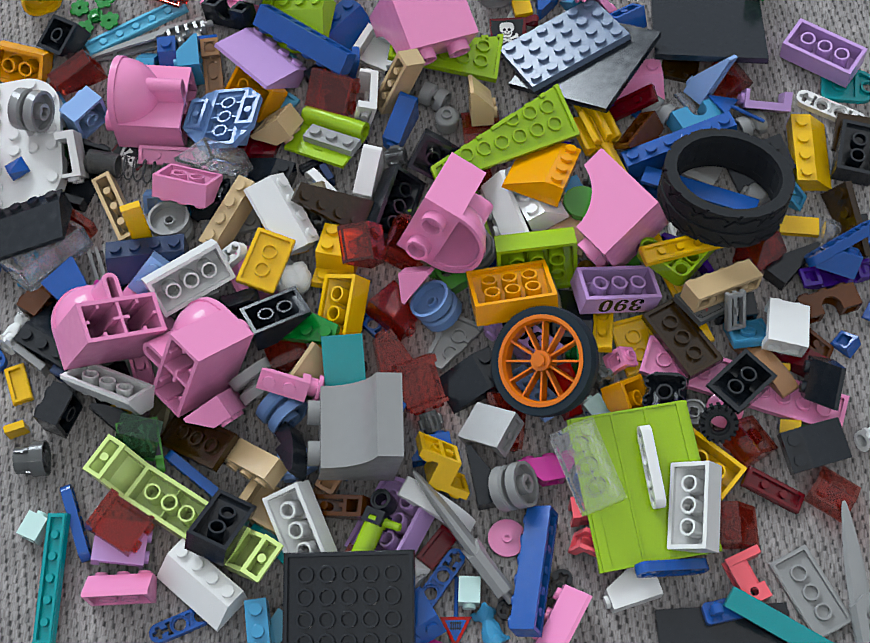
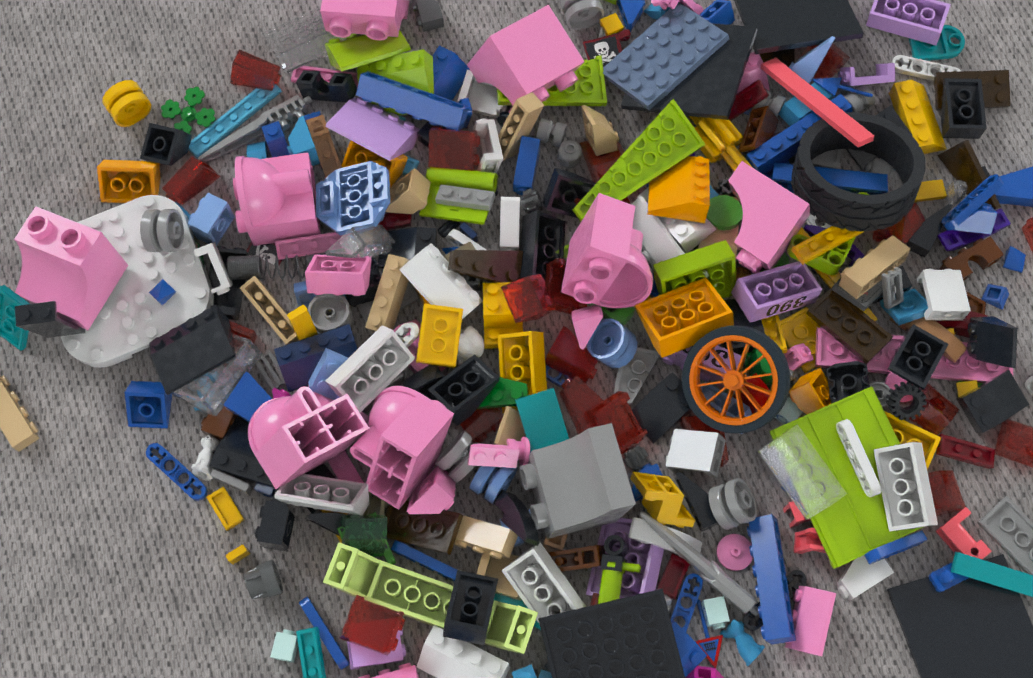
camera: 15 degrees left, 5 degrees up
(546, 469) = (757, 476): dark pink slope -> none
(702, 114) = (817, 102): none -> coral tile

